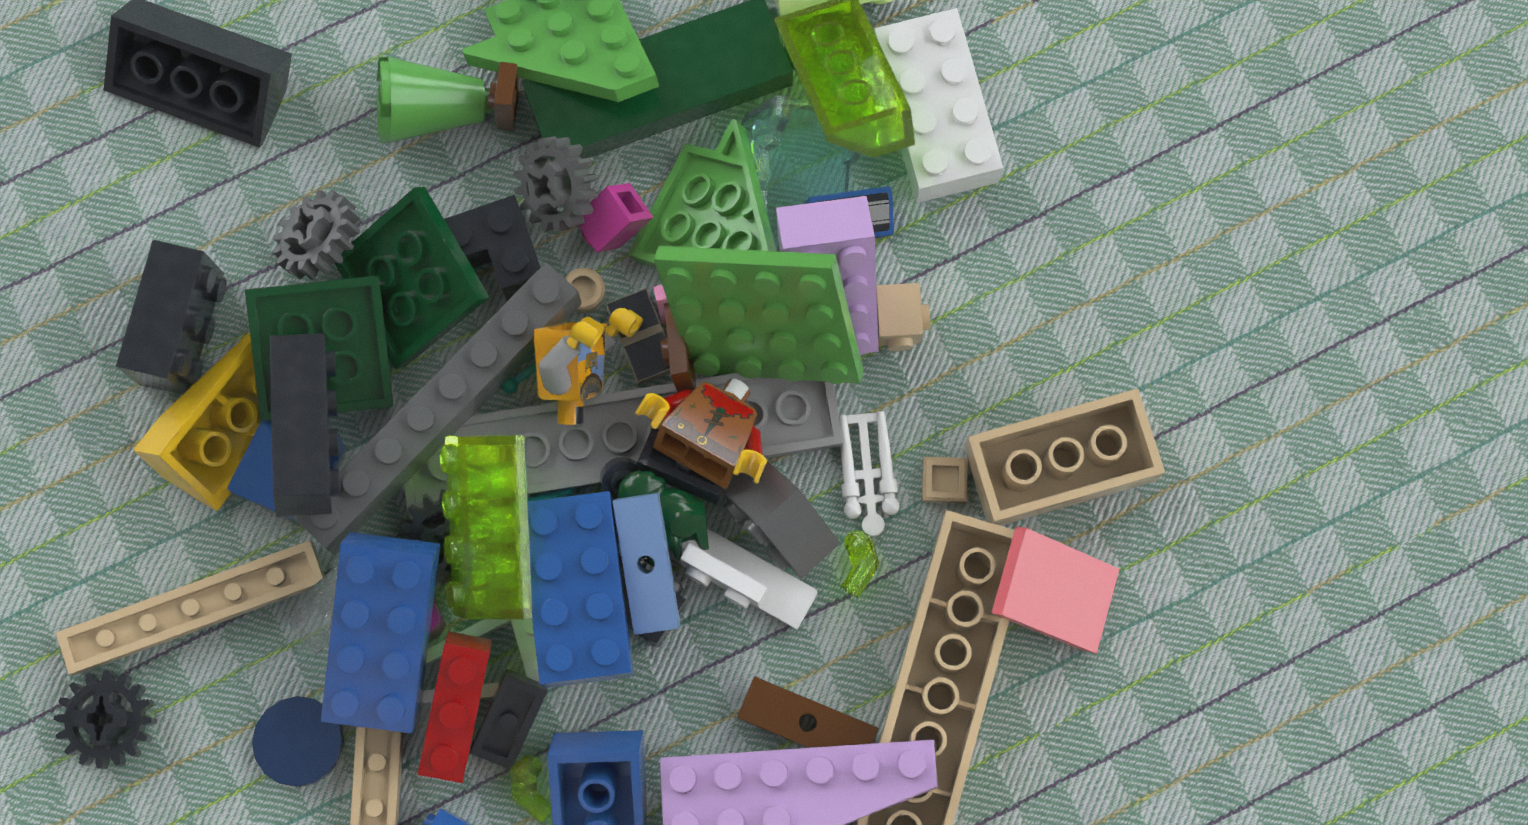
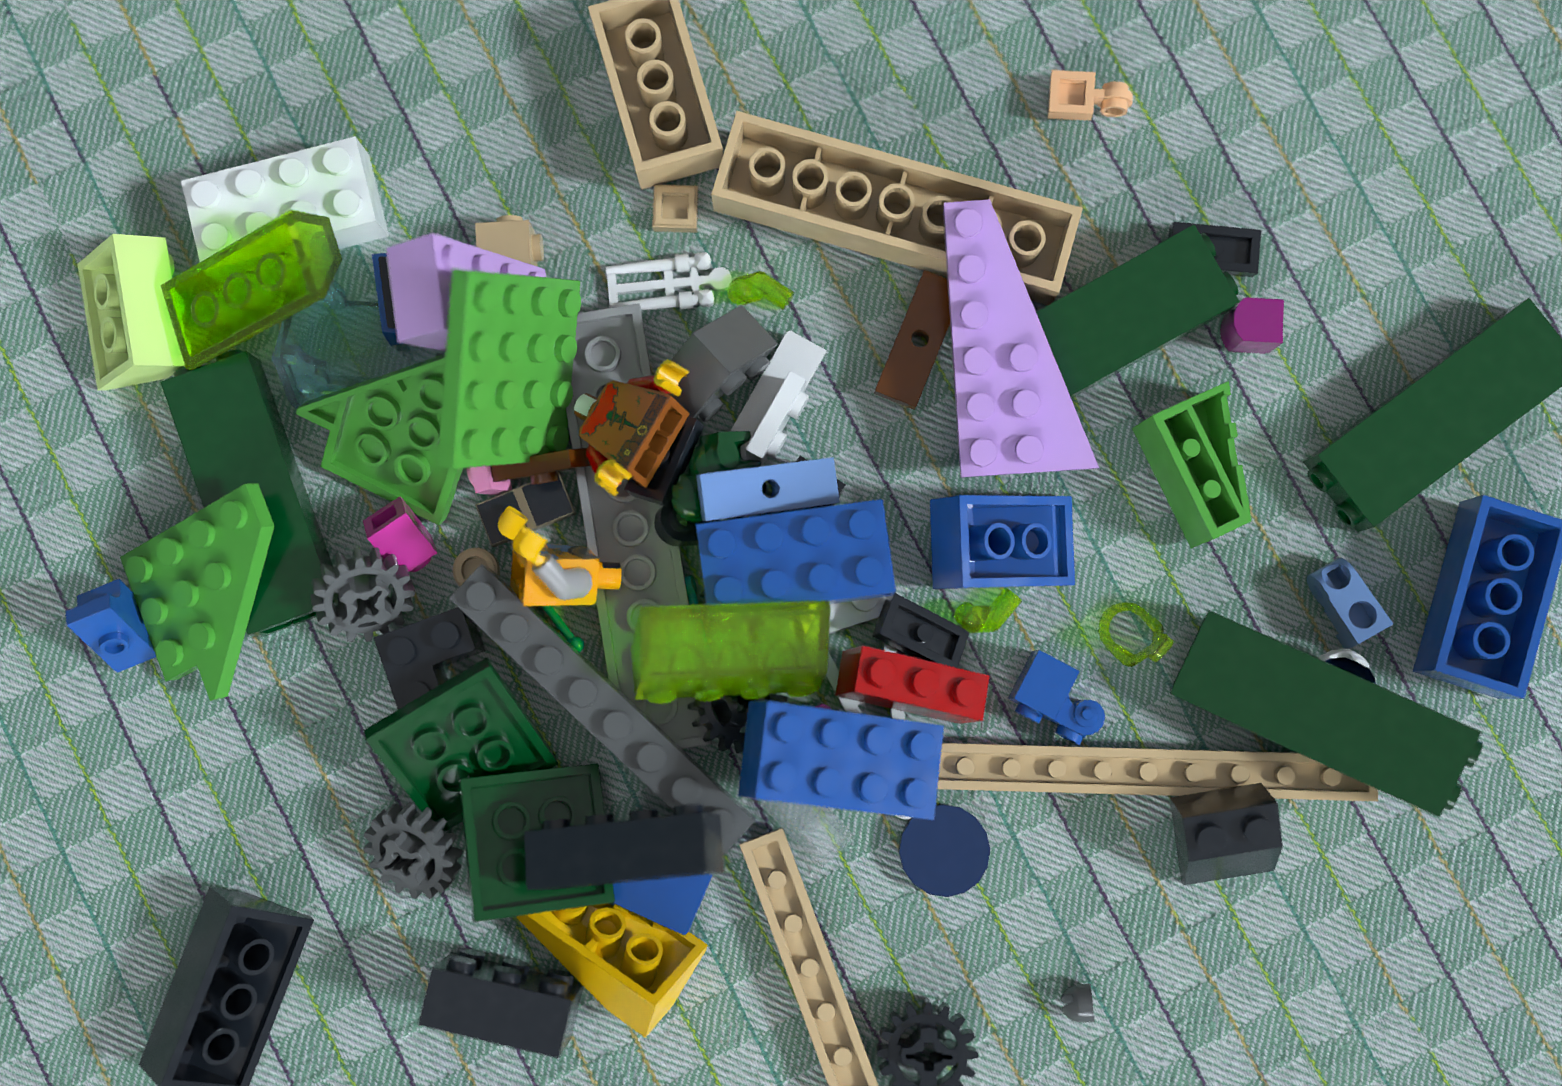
camera: 90 degrees left, 5 degrees up
(425, 99) = (265, 739): bright green cone -> none
(505, 96) = (263, 651): reddish brown plate -> none
(1055, 590) = (789, 94): coral tile -> none

